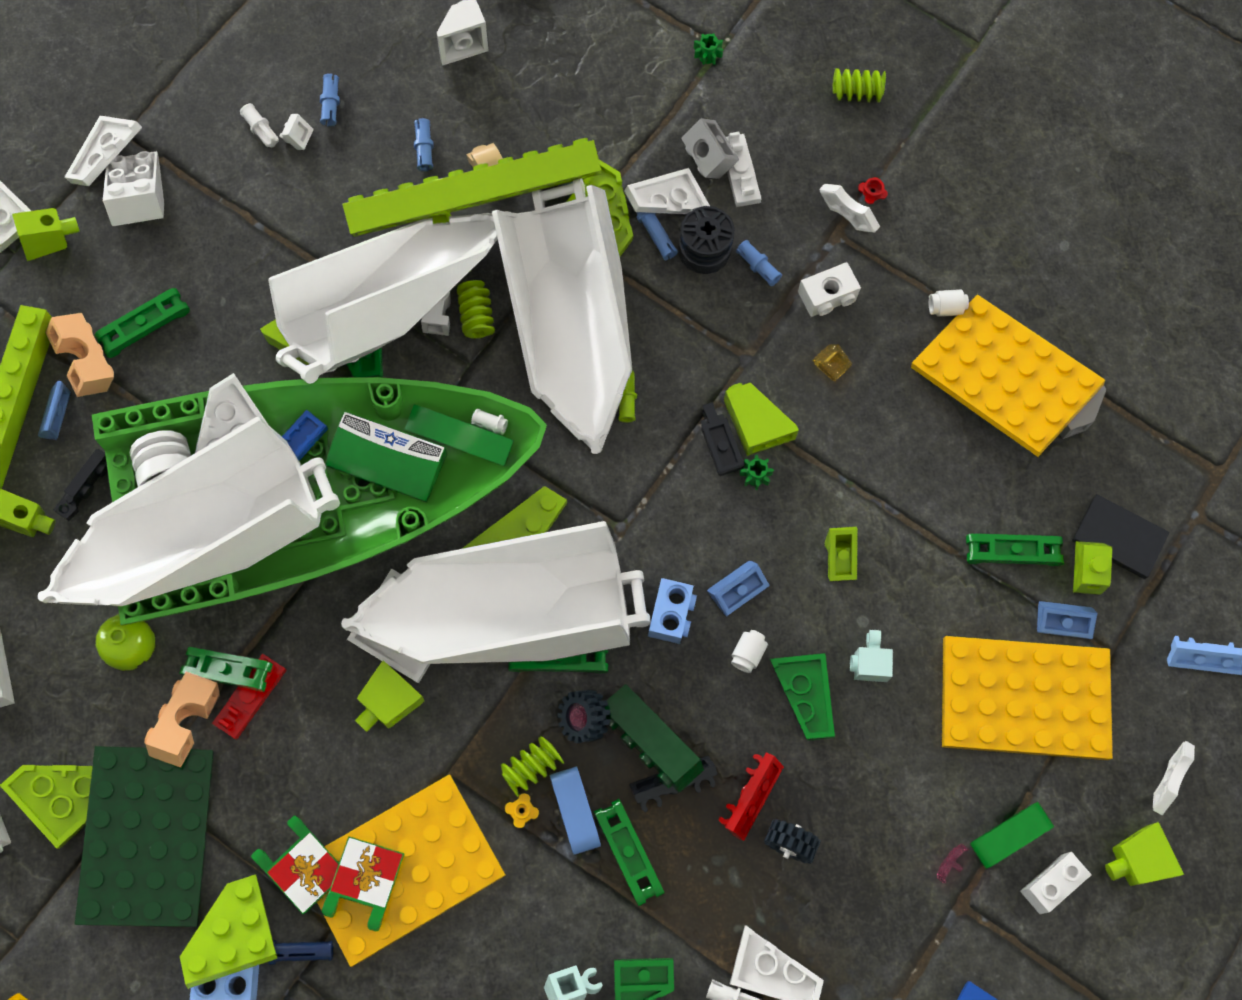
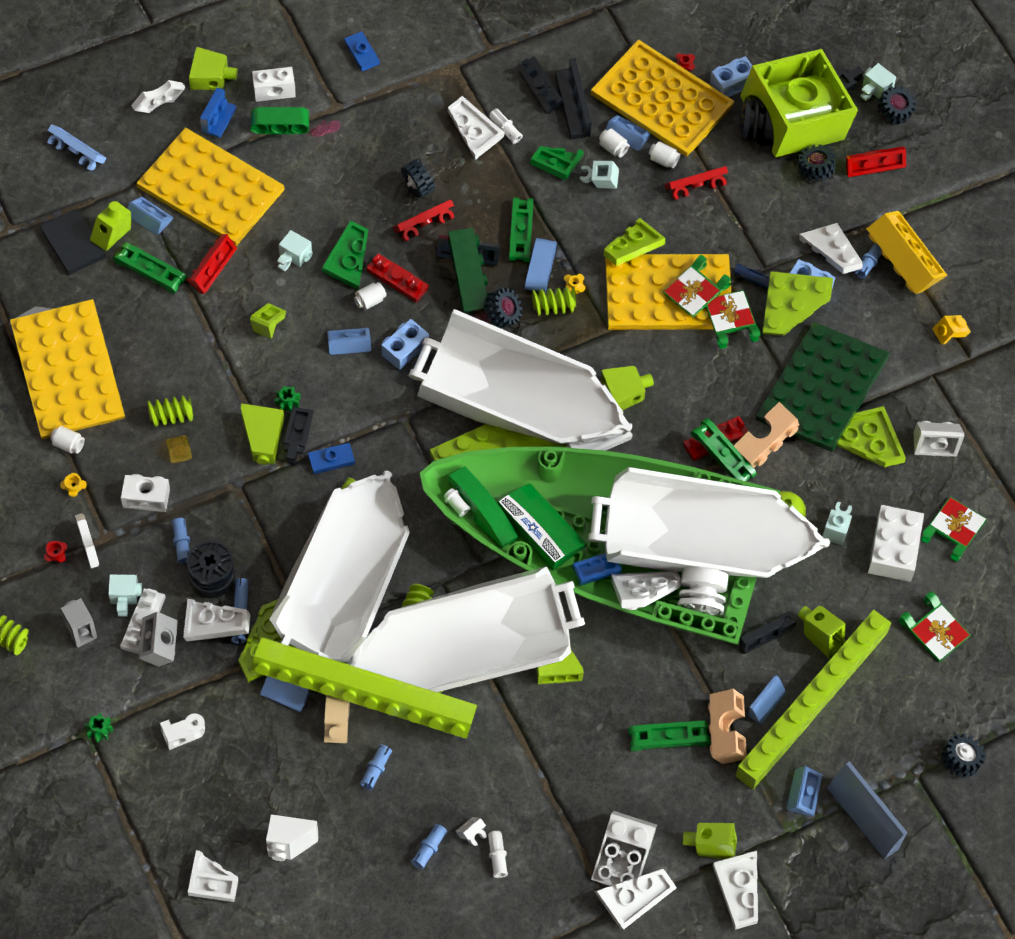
camera: 150 degrees left, 10 degrees down
(51, 654) = (837, 524): none -> light aqua brick
(474, 907) = (635, 242): none -> lime wing
(628, 85) = (183, 731): none -> white leg
(667, 435) = (331, 458): none -> blue plate
(735, 699) = (397, 277): none -> red plate
(777, 182) = (124, 591): none -> light aqua brick
(795, 121) = (78, 622): none -> light grey brick
(867, 388) = (170, 410): none -> lime piece
(907, 258) = (73, 478): none -> yellow plate
(950, 591) = (212, 264): none -> red plate
(1088, 795) = (217, 114): none -> blue bracket

